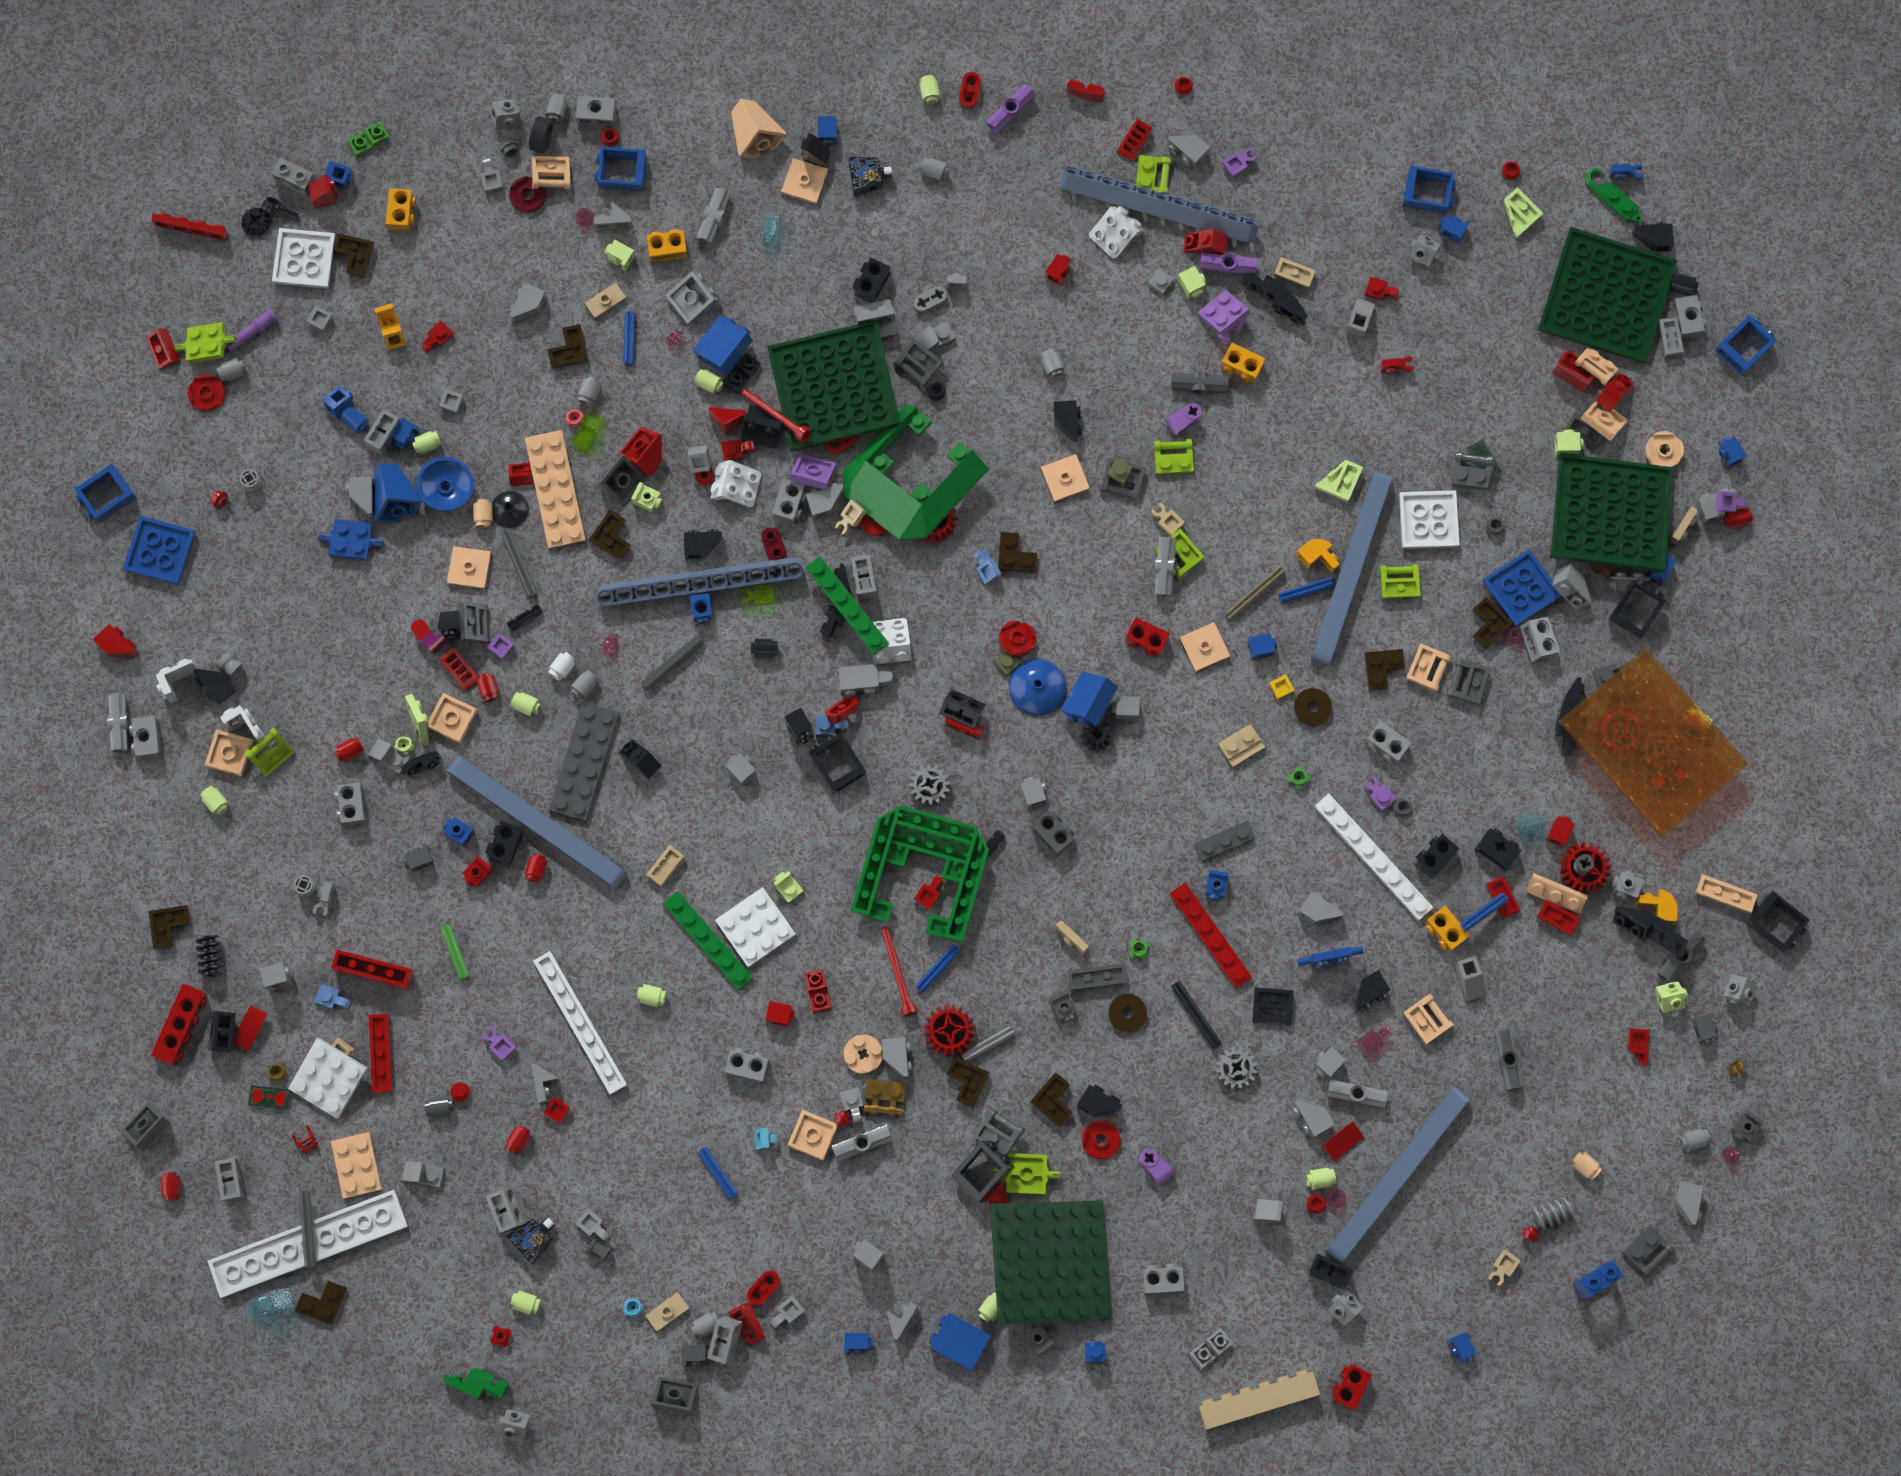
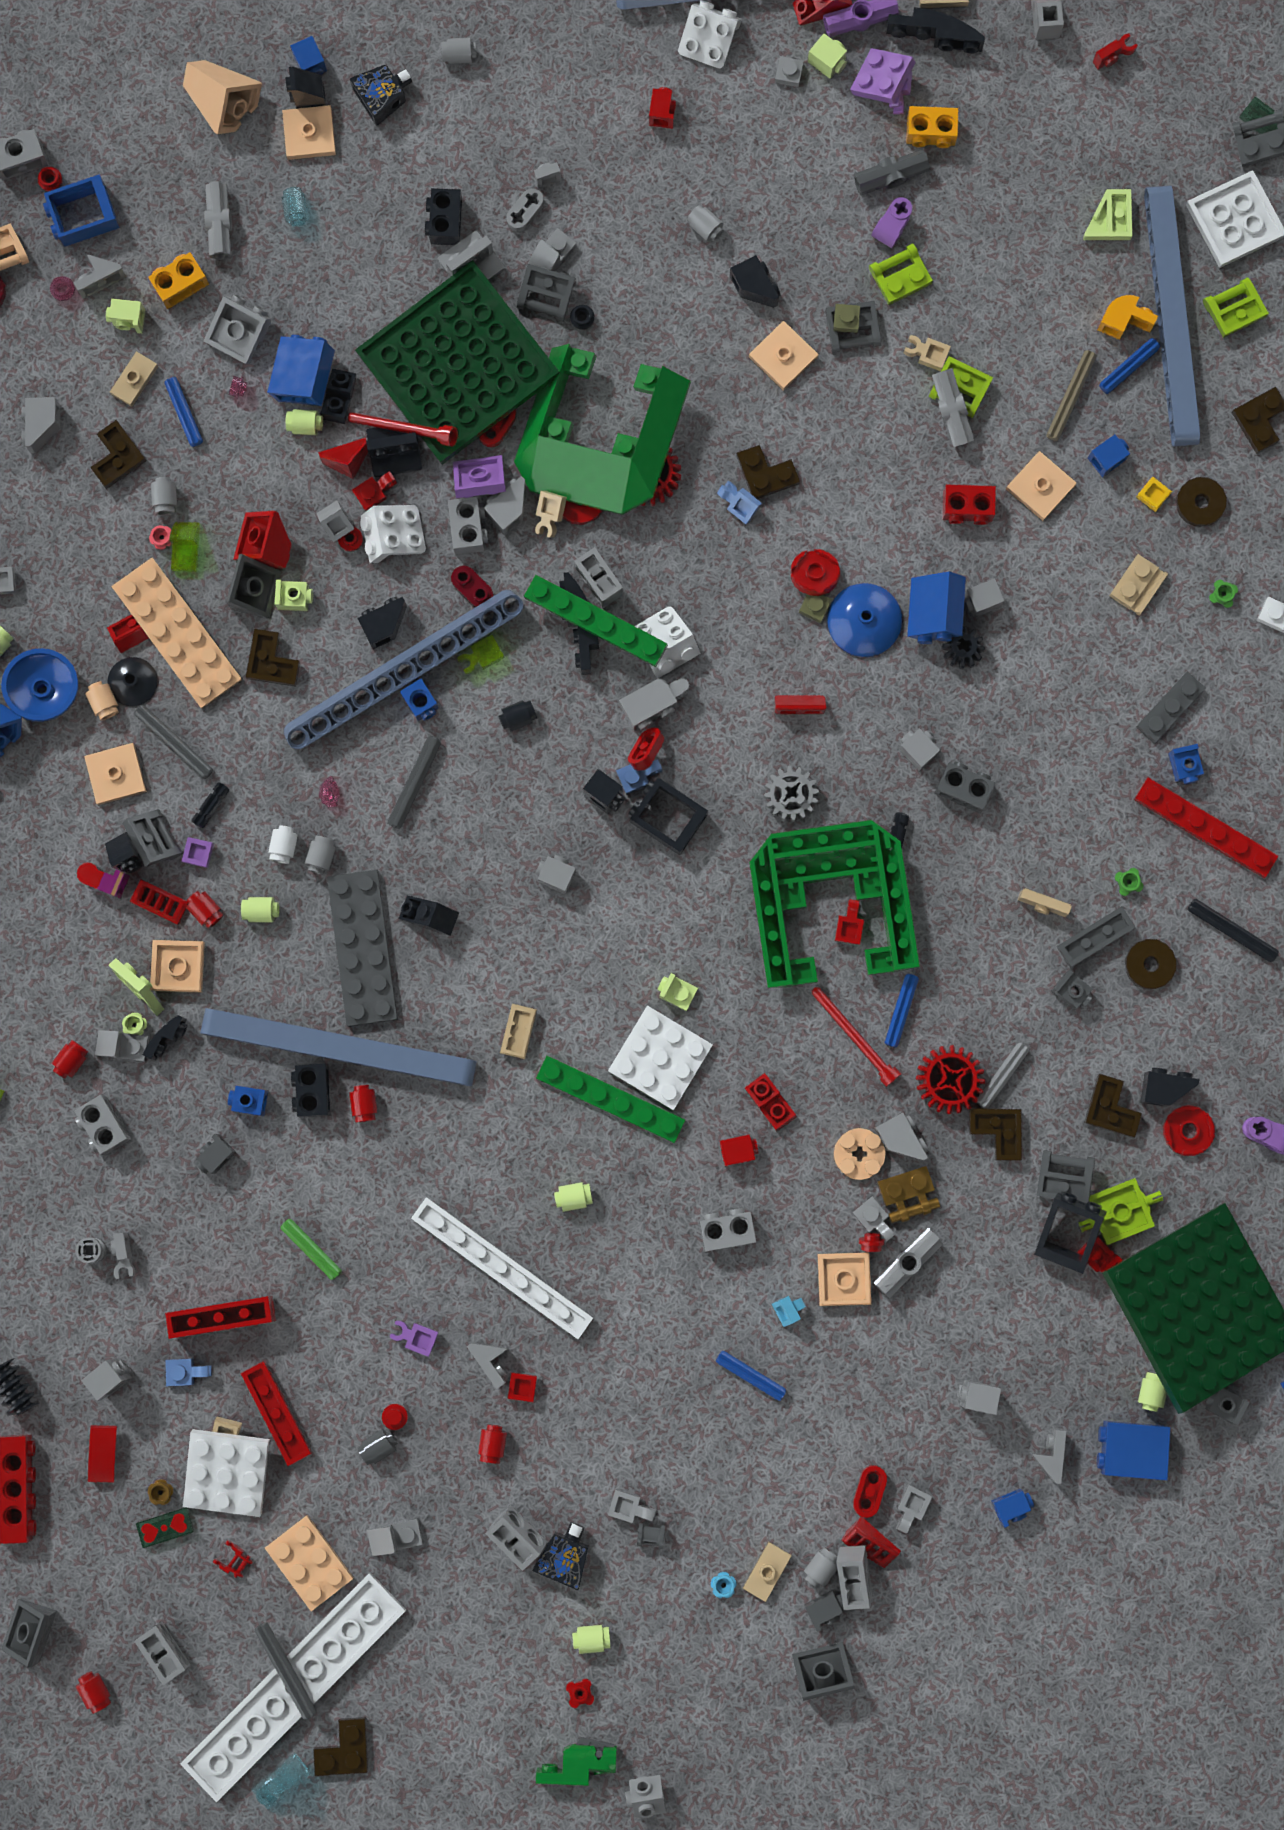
camera: 20 degrees left, 5 degrees up
(221, 1031) = (70, 1475): black brick -> none
(484, 872) = (302, 1135): red brick -> none
(962, 709) = (789, 685): black brick -> none

